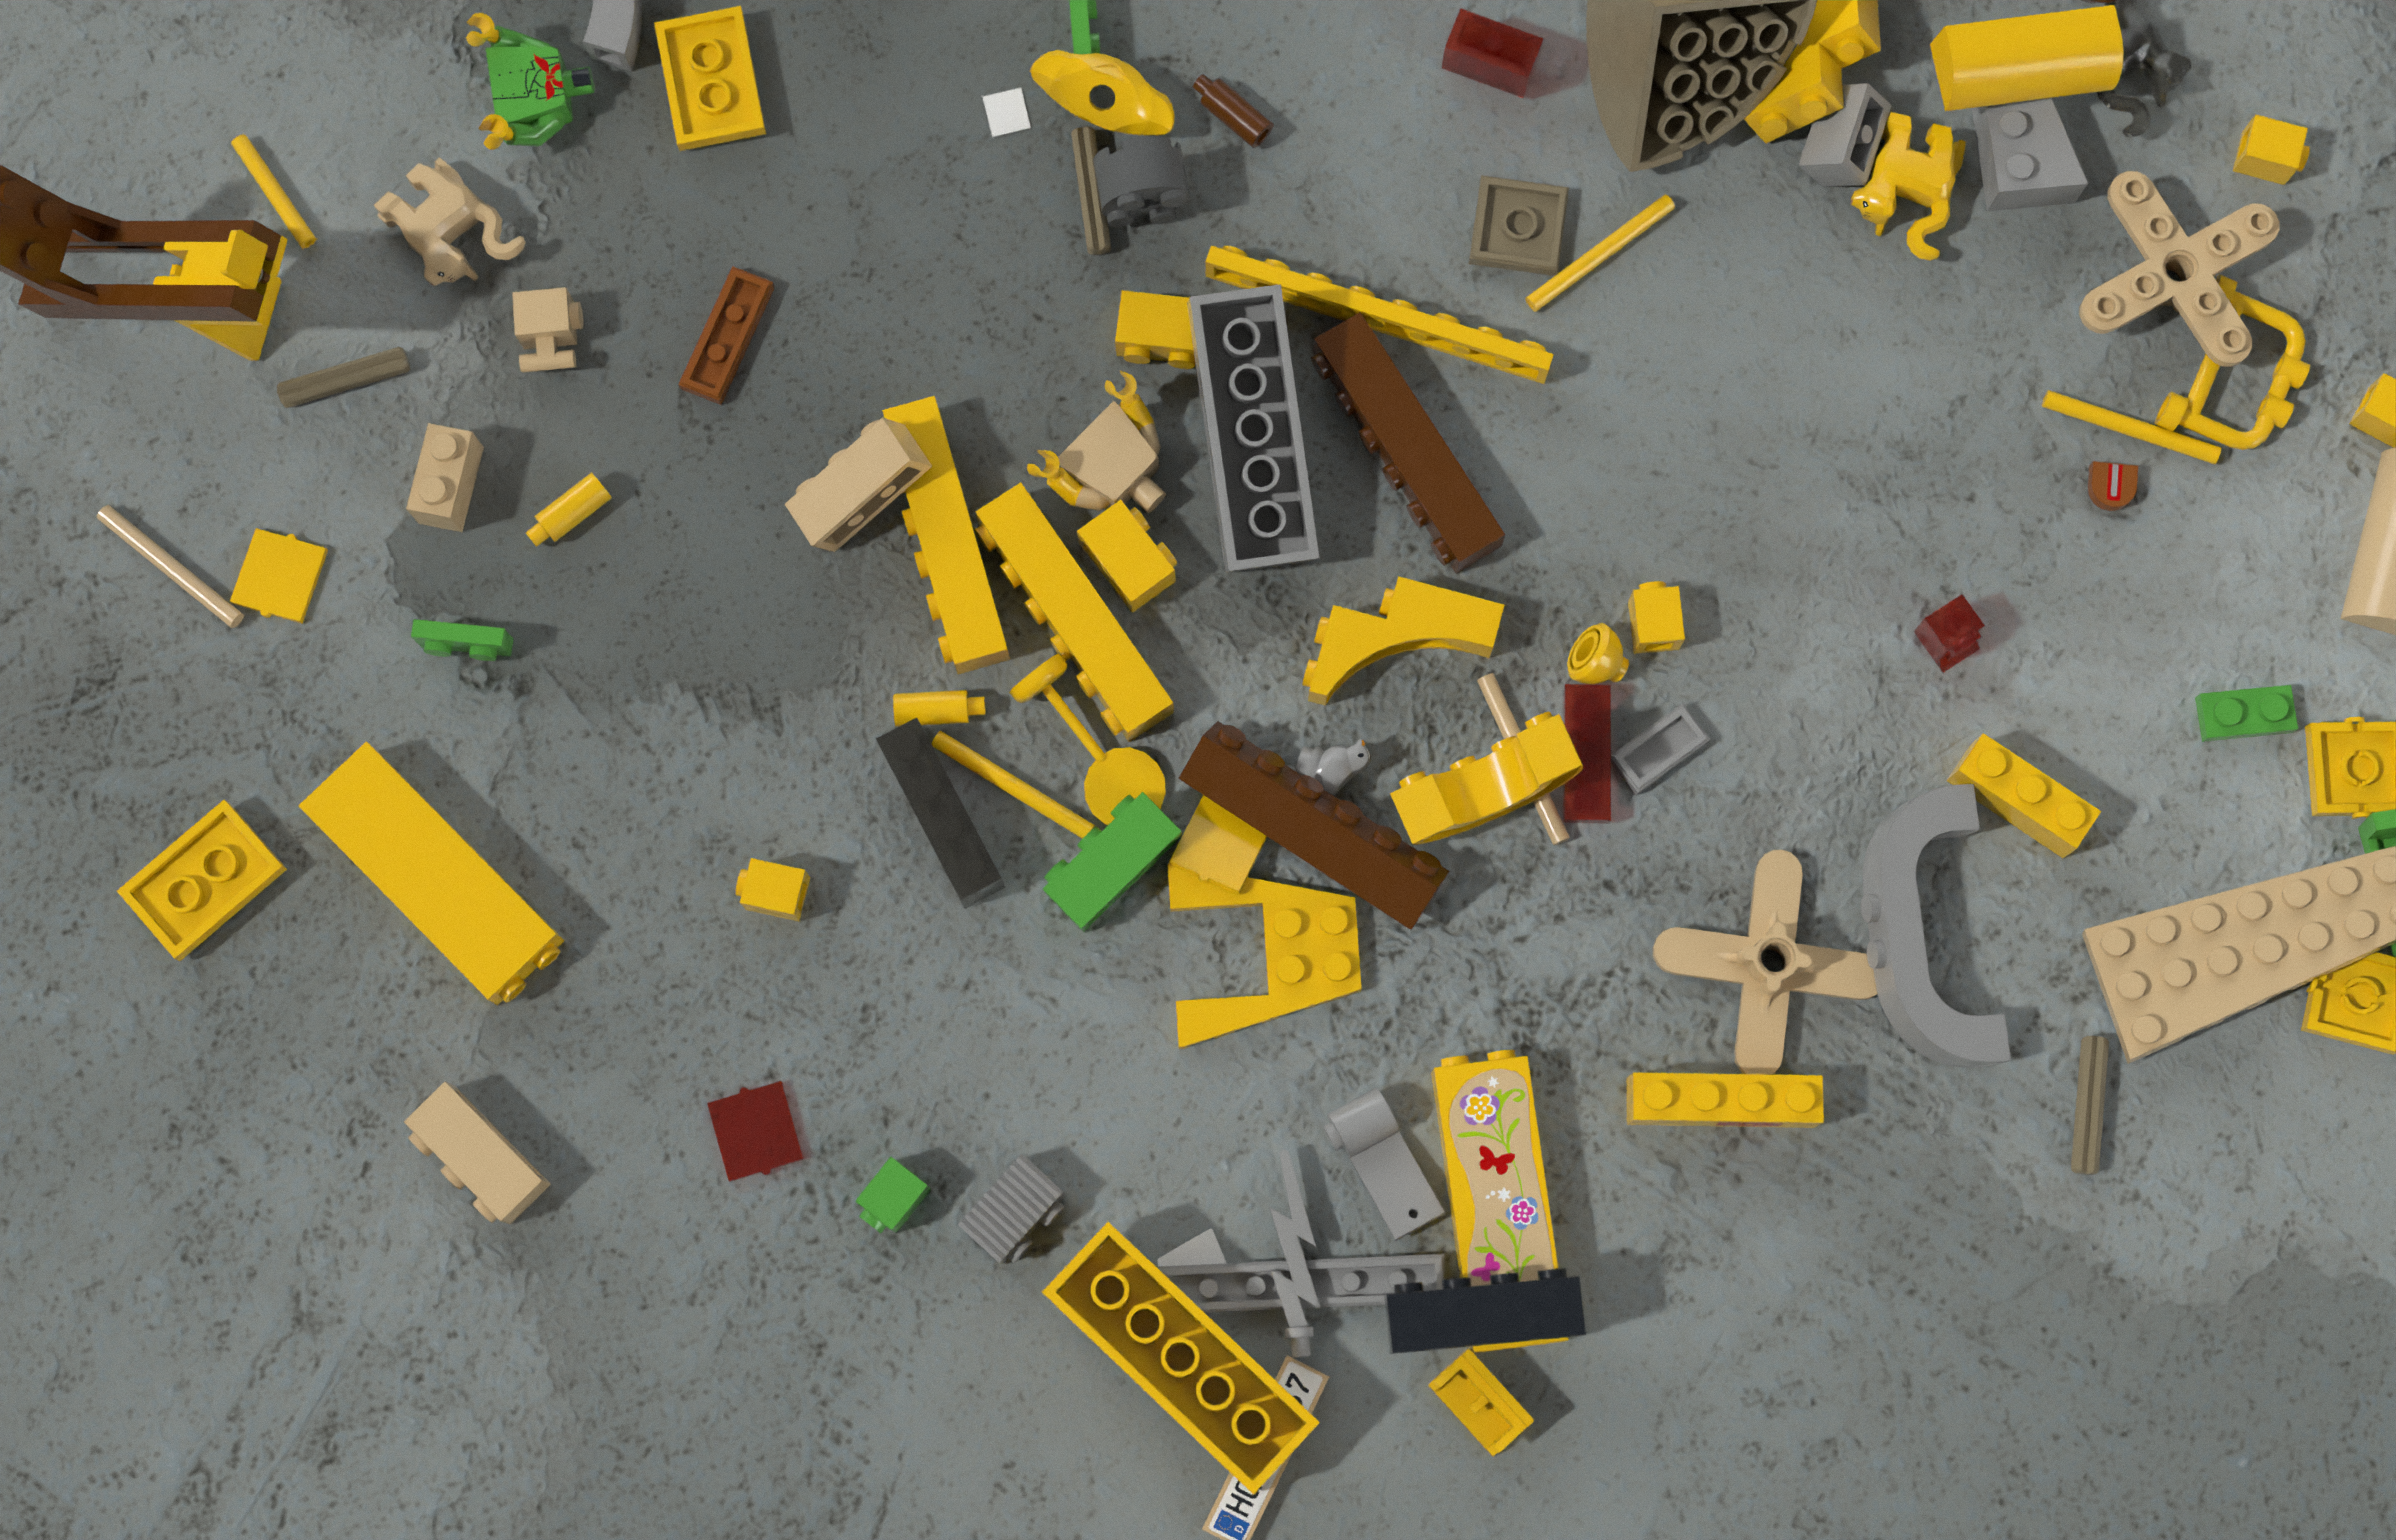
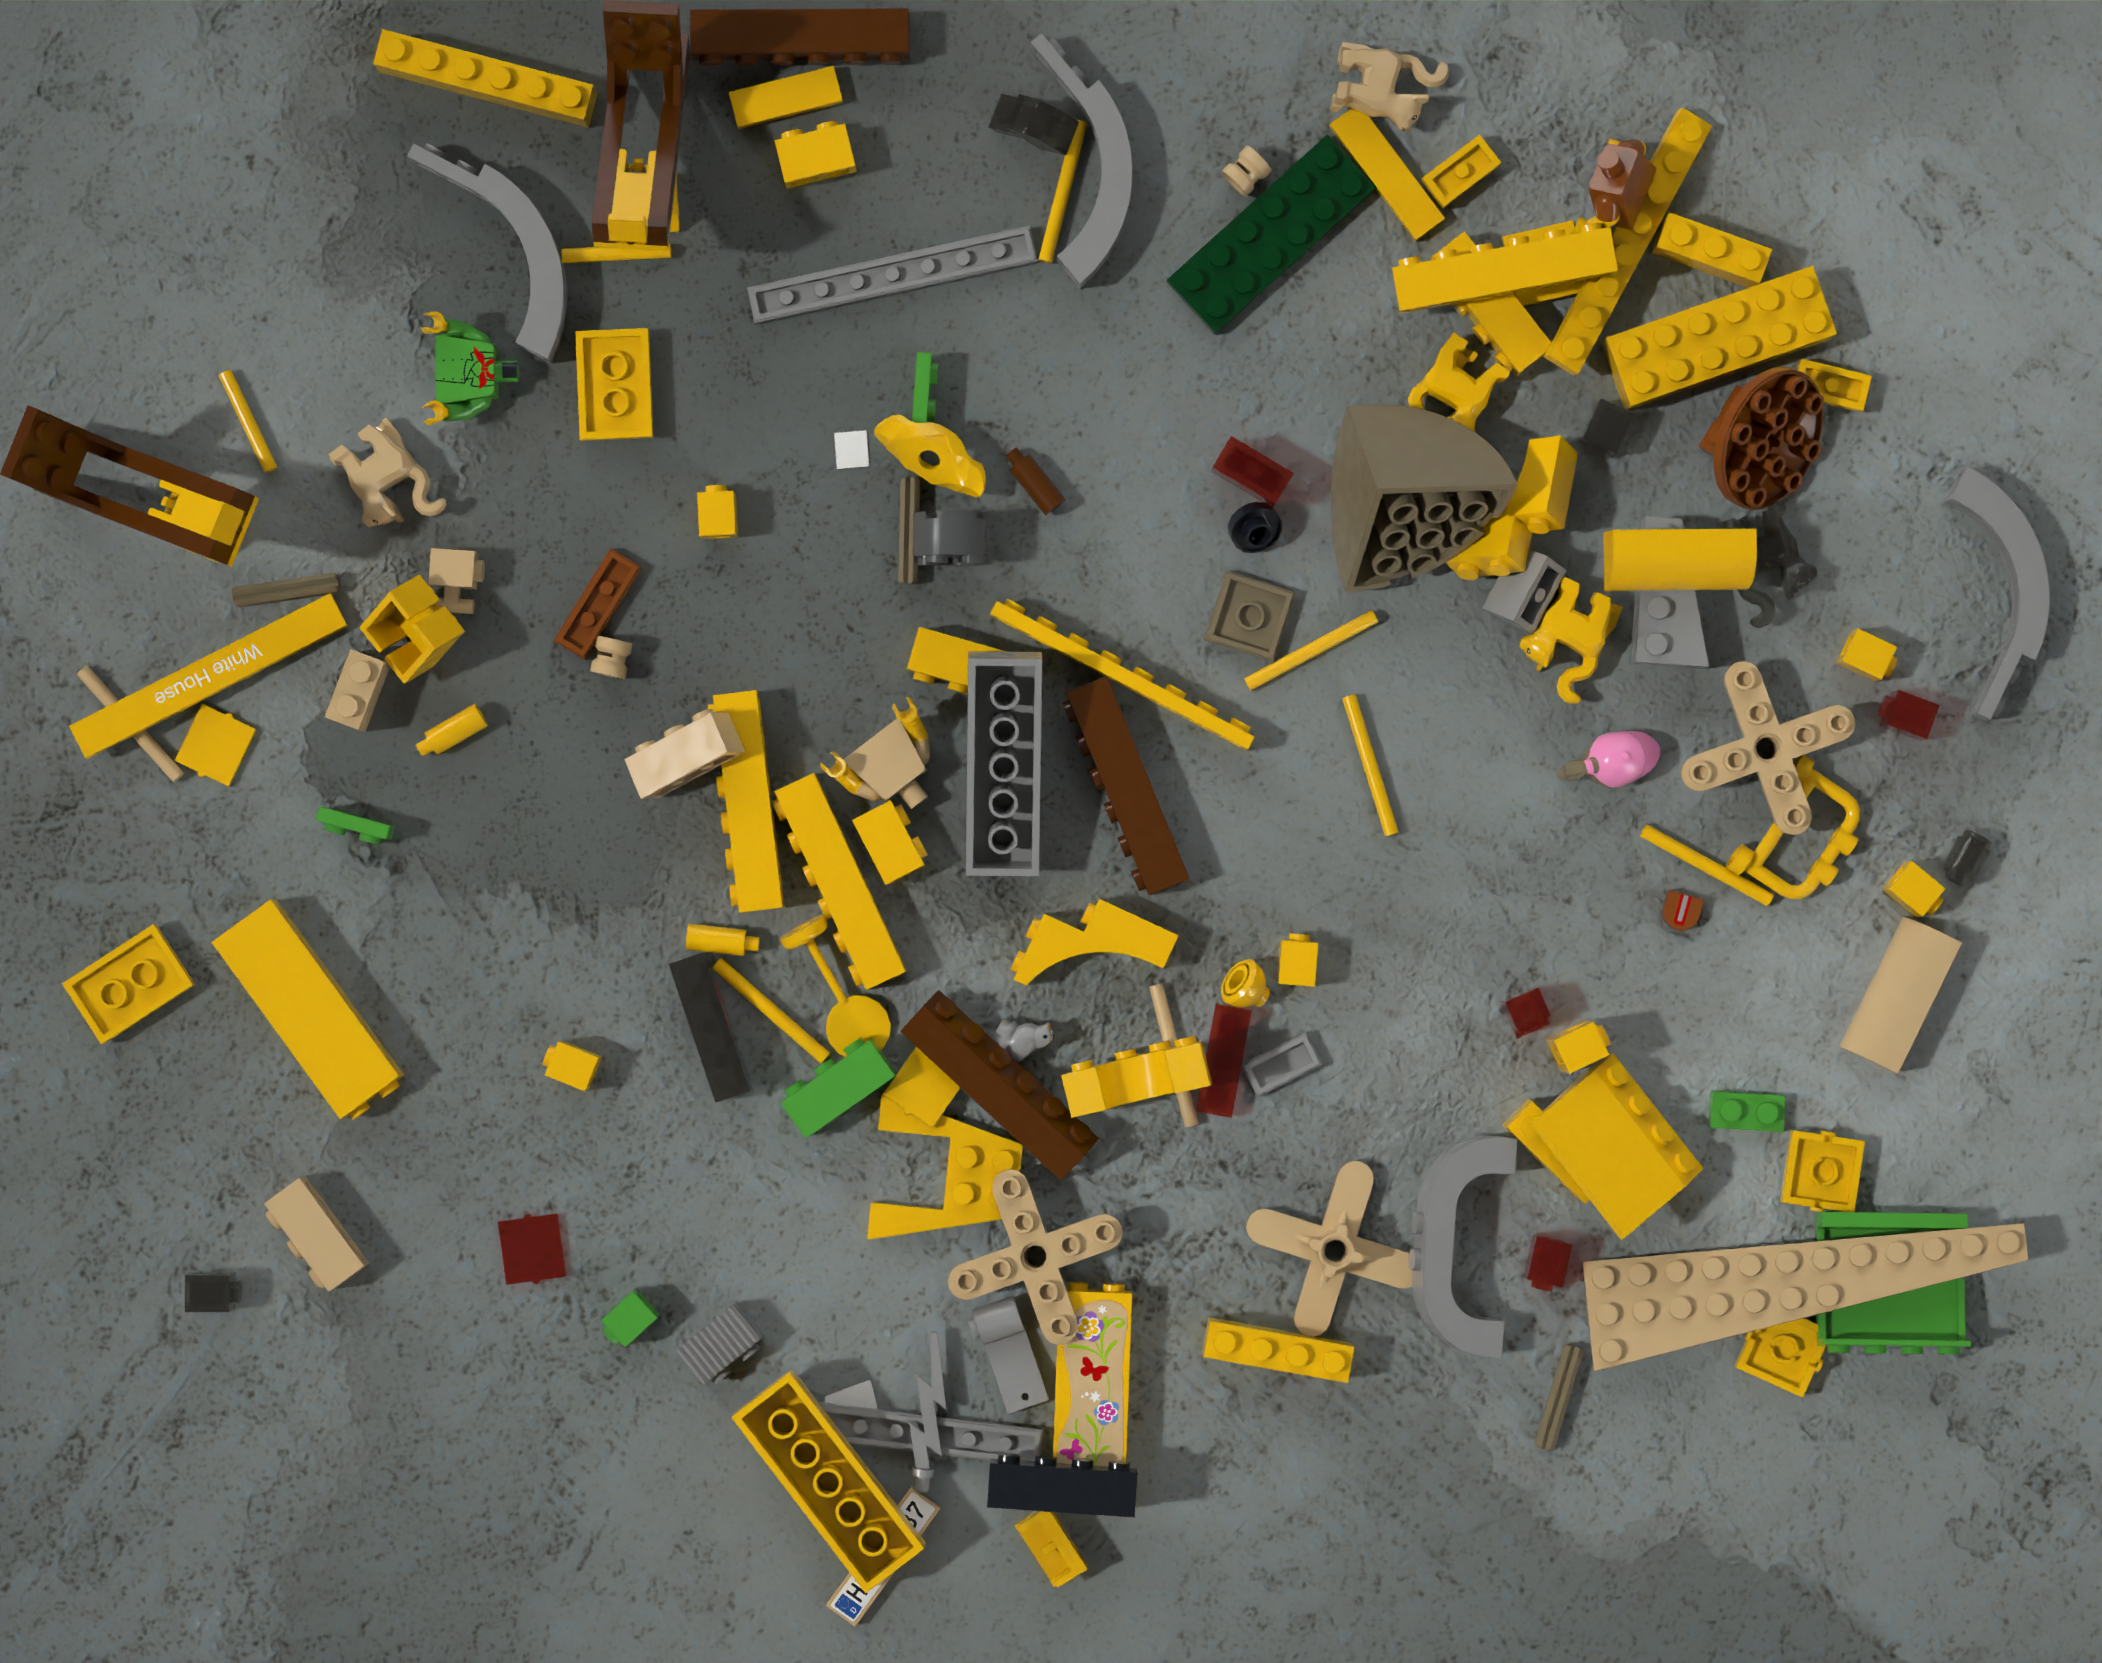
camera: 10 degrees right, 10 degrees up
(257, 492) = (208, 676): none -> yellow tile
(351, 1250) = (211, 1292): none -> clear smoke brick
(497, 375) = (413, 613): none -> yellow piece
(751, 391) = (611, 657): none -> tan wheel
(856, 204) = (717, 513): none -> yellow brick
(1381, 1001) = (1011, 1266): none -> tan piece
(1507, 117) = (1254, 527): none -> black plate
(1698, 375) = (1370, 765): none -> yellow bar
(1991, 319) = (1614, 759): none -> bright pink hair
(2025, 658) = (1579, 1046): none -> yellow brick
(2040, 935) = (1547, 1262): none -> clear red brick
(2102, 768) = (1616, 1145): none -> yellow slope
(2336, 210) = (1907, 714): none -> clear red brick

